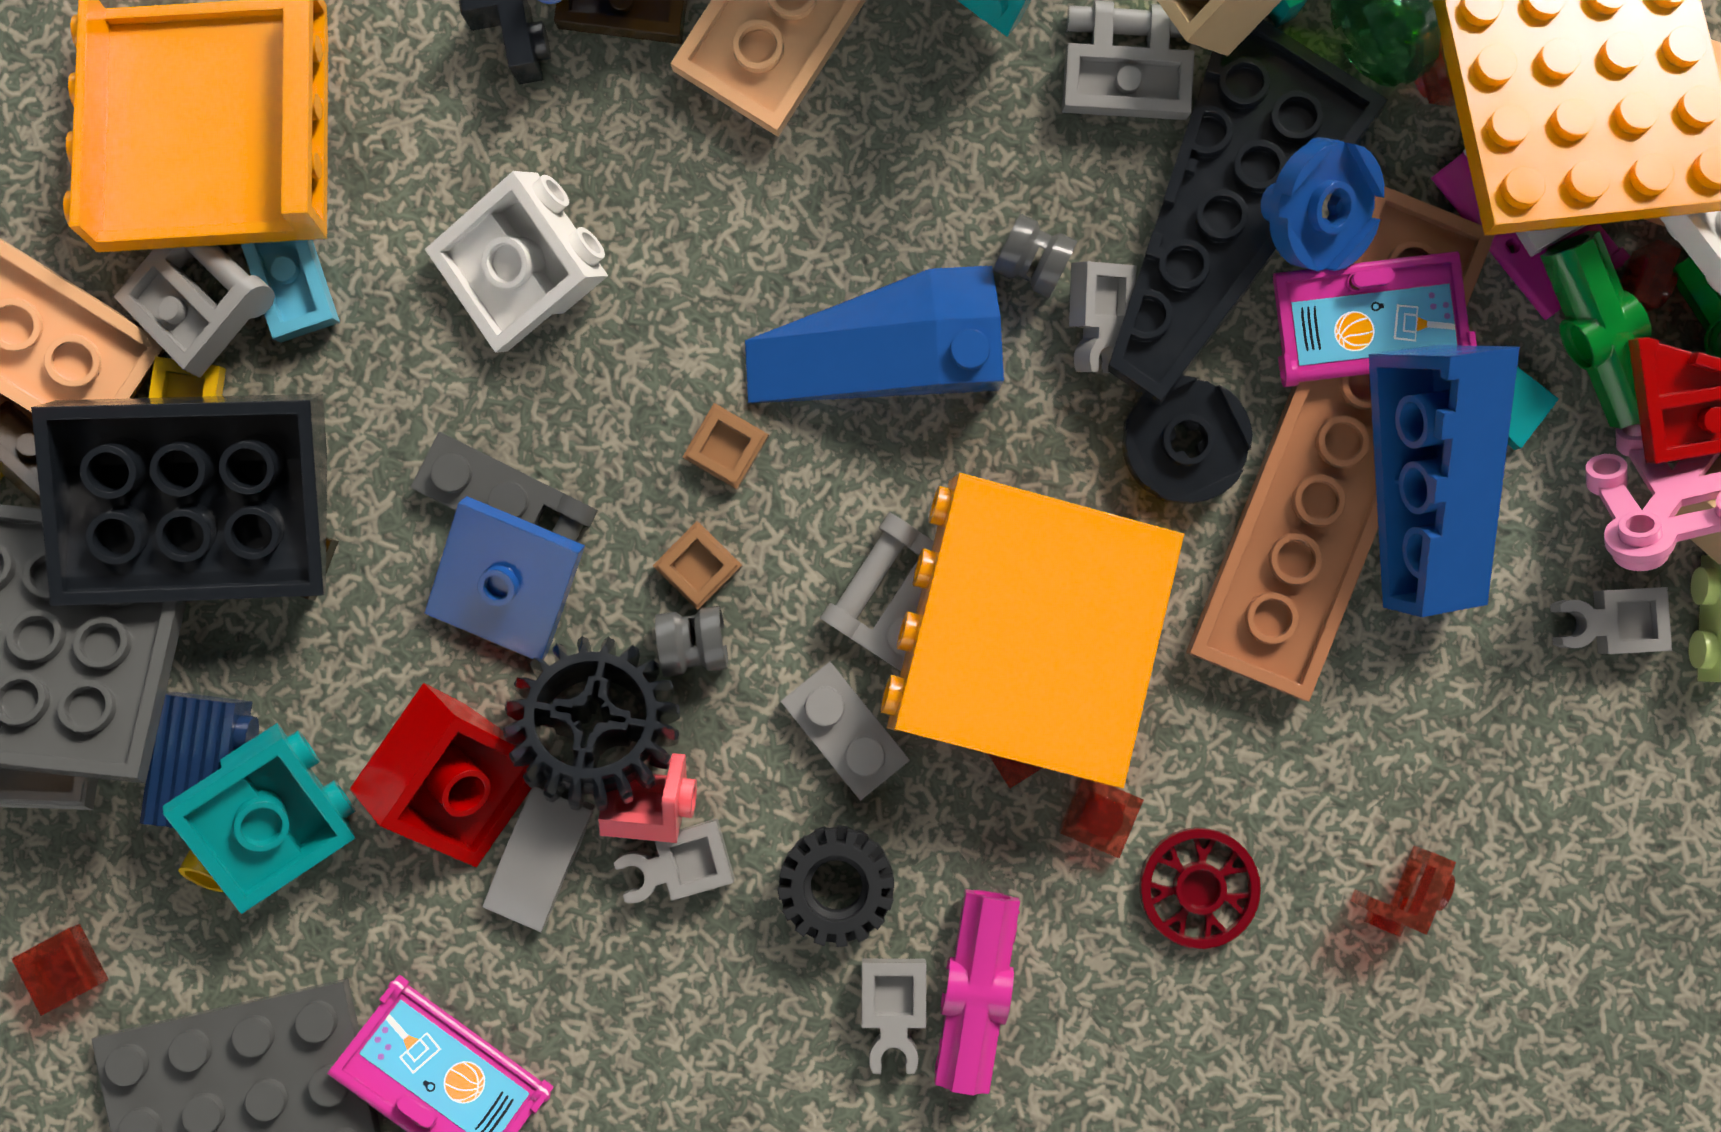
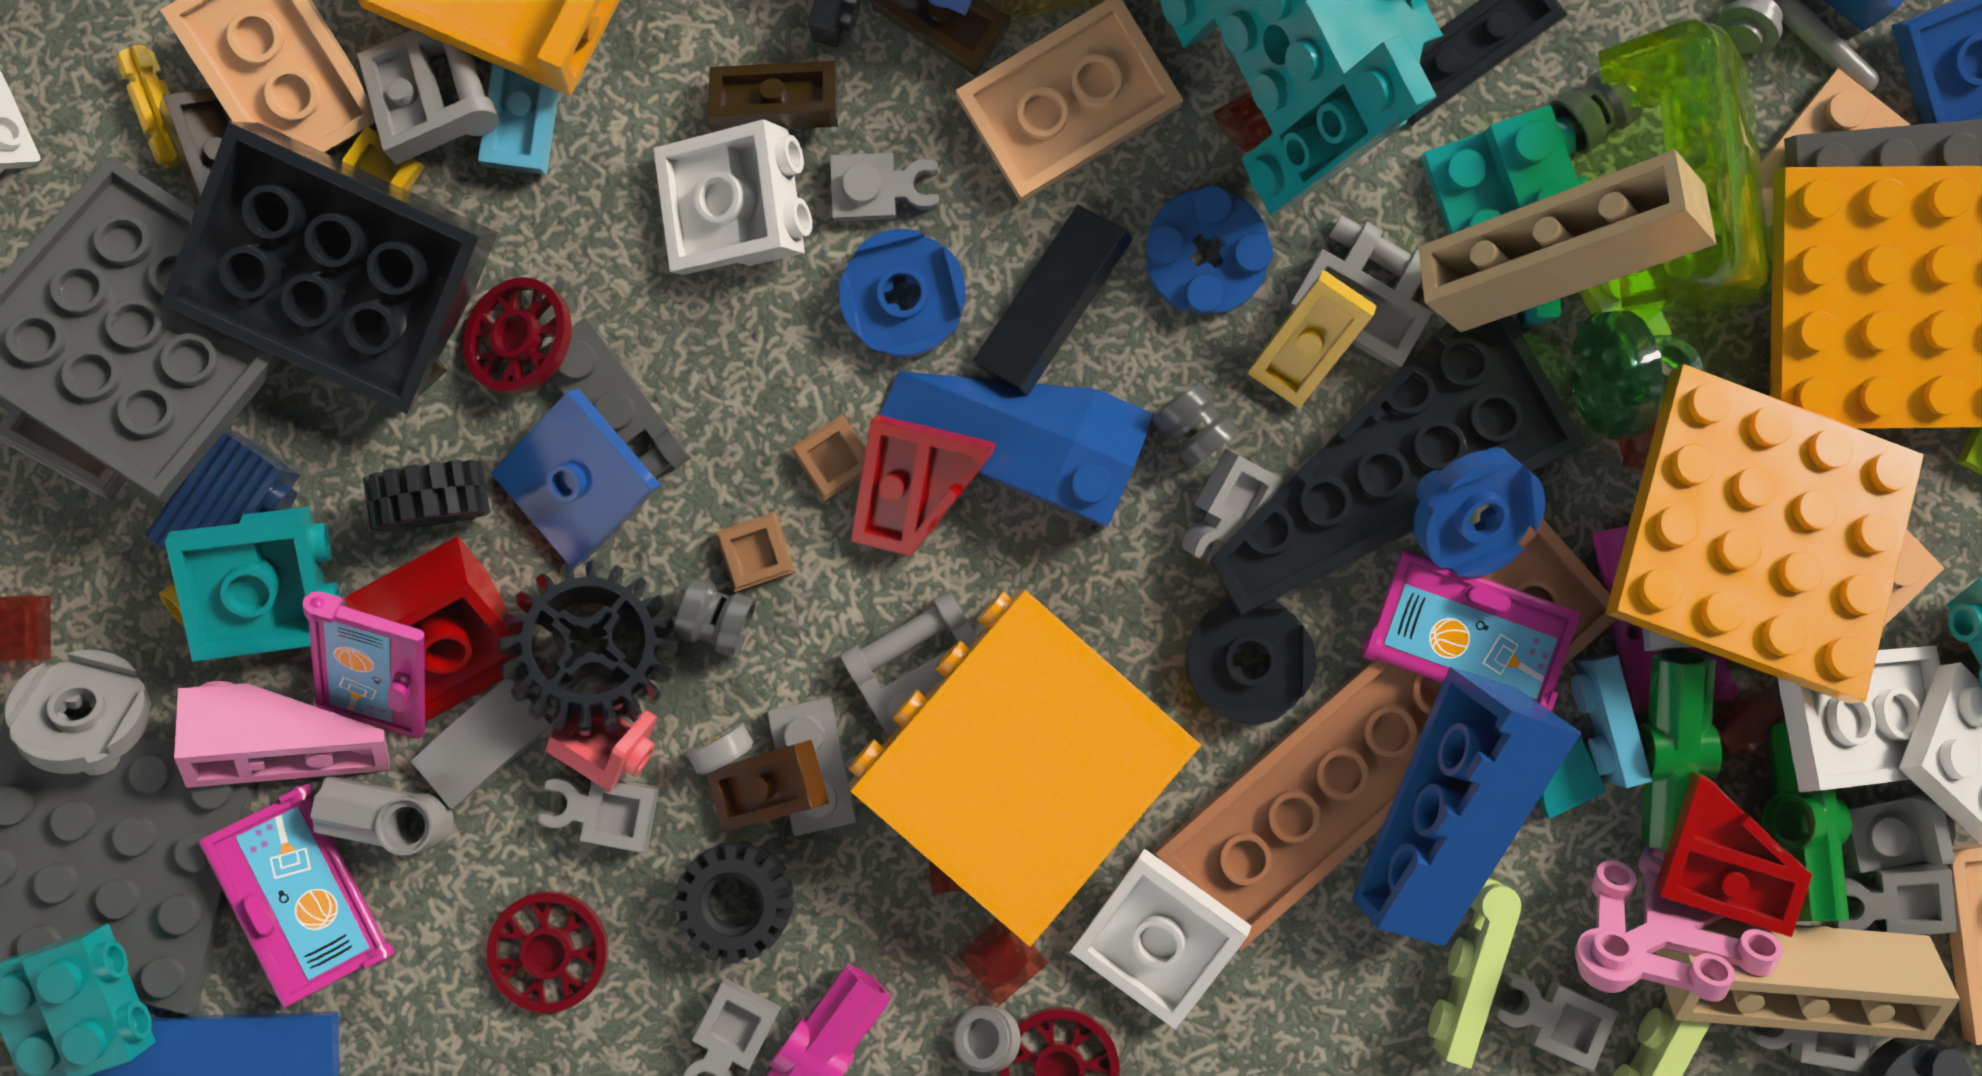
camera: 35 degrees right, 0 degrees up
(187, 1032) = (84, 745): none -> light grey plate
(342, 948) = (257, 735): none -> bright pink slope
(377, 659) = (426, 495): none -> black tyre
(386, 478) = (517, 336): none -> dark red wheel
(402, 839) = (366, 666): none -> door
(478, 970) = (379, 815): none -> light grey piece
(518, 141) = (781, 93): none -> dark brown plate
(636, 189) = (869, 186): none -> light grey plate
(691, 1016) = (547, 952): none -> dark red wheel
(714, 233) = (922, 264): none -> blue plate
(755, 756) = (720, 749): none -> light grey tile
(807, 430) = (912, 481): none -> red wing
(815, 766) = (768, 786): none -> reddish brown plate
(850, 207) = (1053, 299): none -> black tile
(980, 130) = (1243, 257): none -> blue plate
(1100, 126) = (1312, 339): none -> yellow plate
(1122, 894) = (986, 1039): none -> light grey tile
(1233, 726) = (1160, 939): none -> white plate
(1525, 613) = (1476, 973): none -> yellowish green plate
(1546, 349) = (1617, 742): none -> medium azure plate

